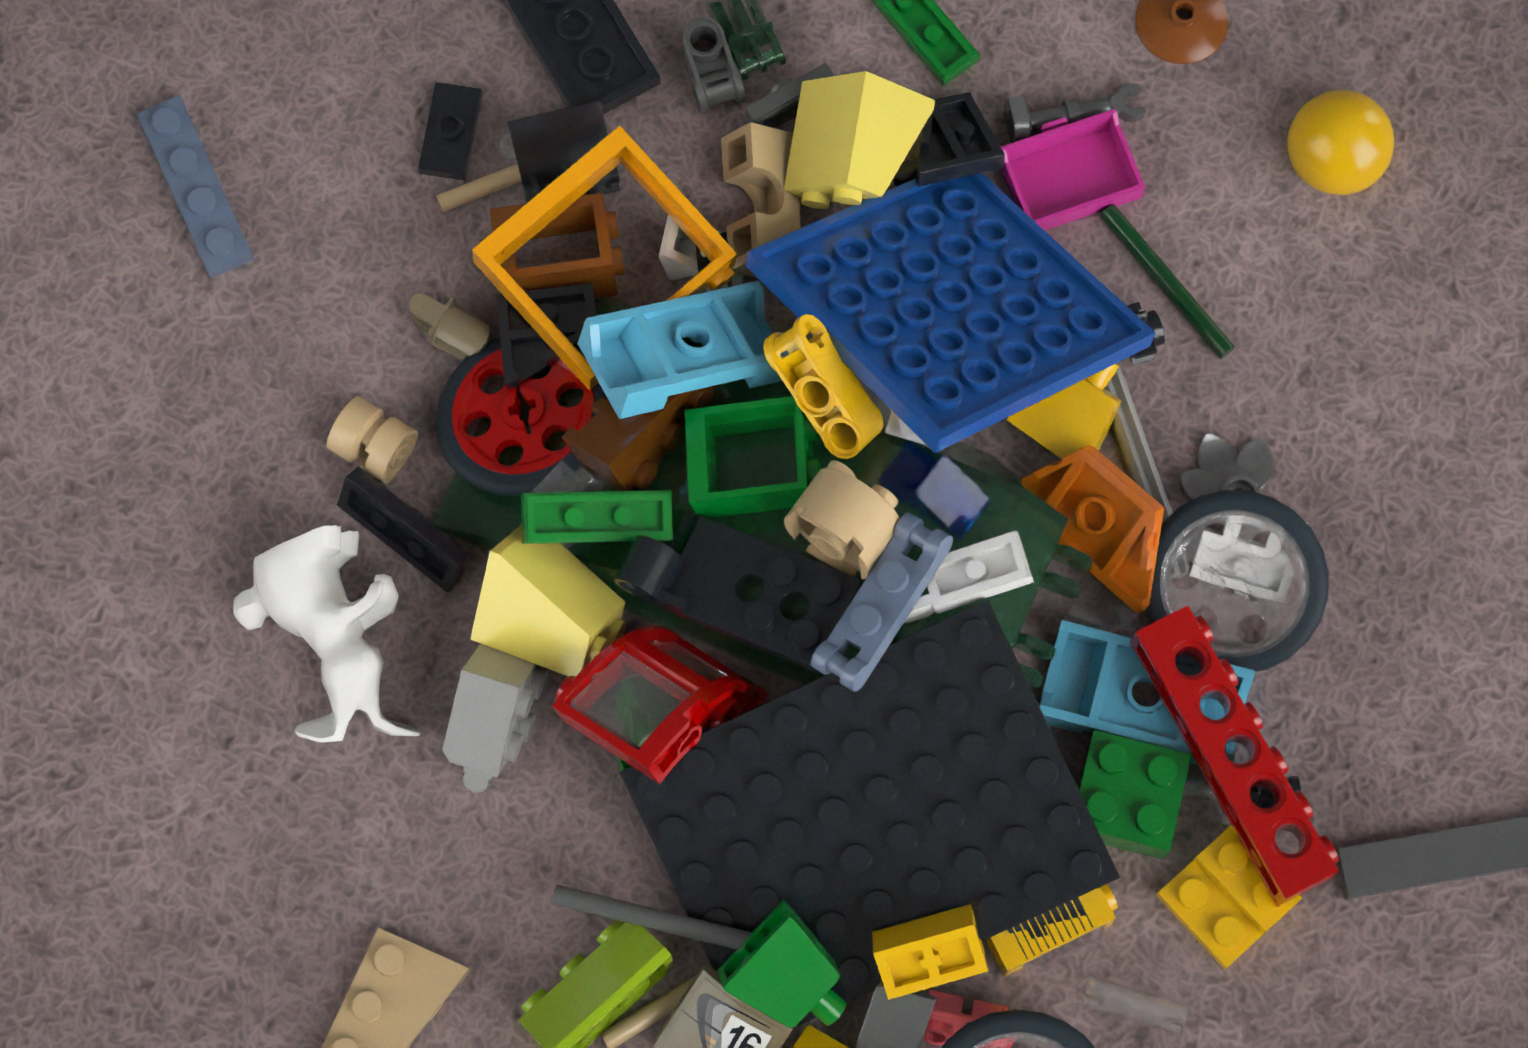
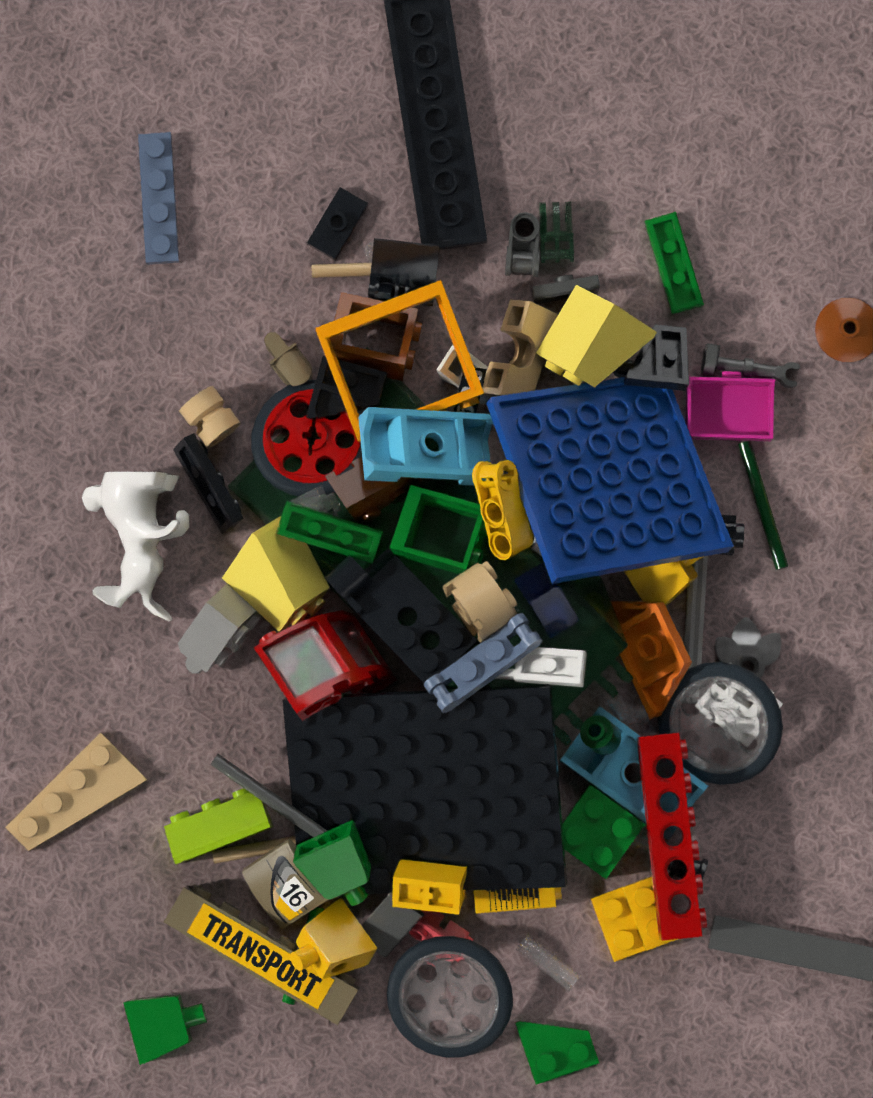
camera: 20 degrees right, 10 degrees up
(1080, 653) = (600, 735): none -> dark green brick

